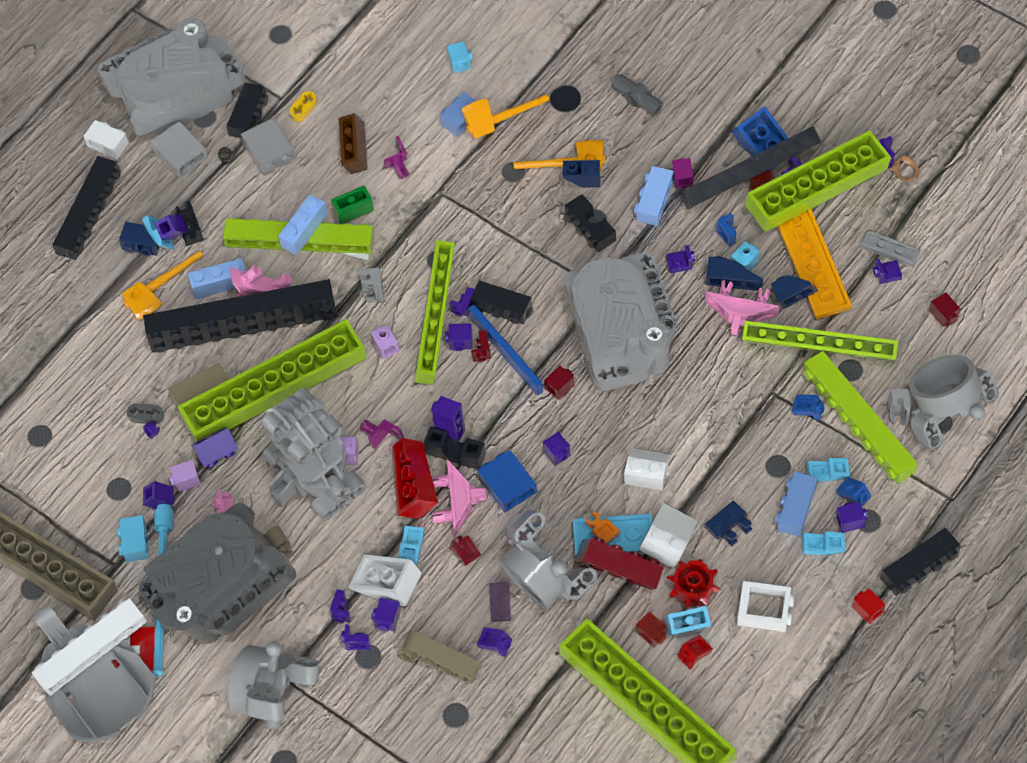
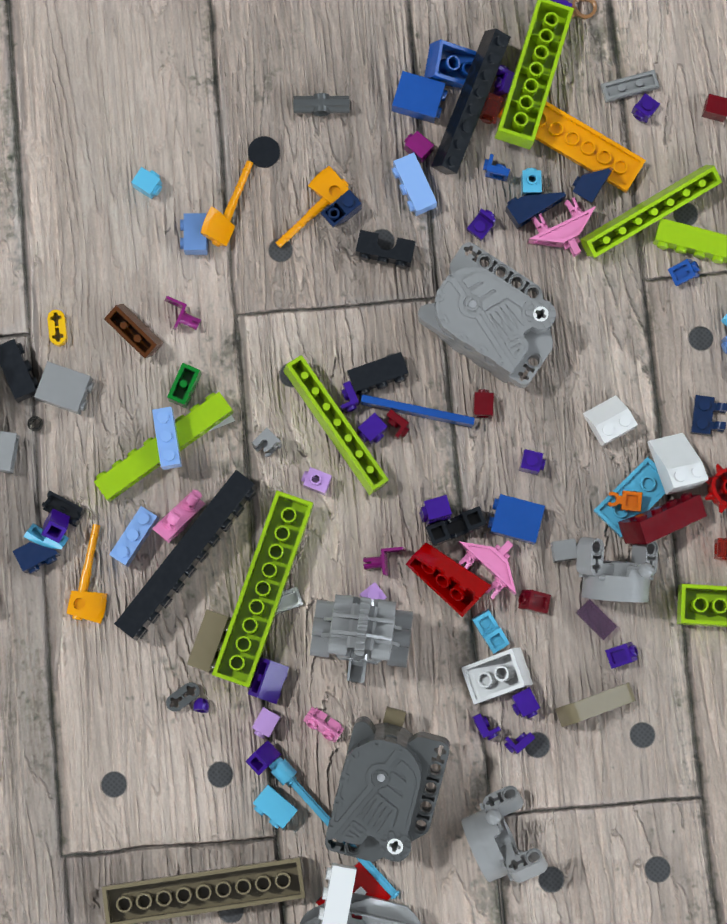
camera: 50 degrees left, 20 degrees up
(715, 140) = (419, 97): none -> blue brick

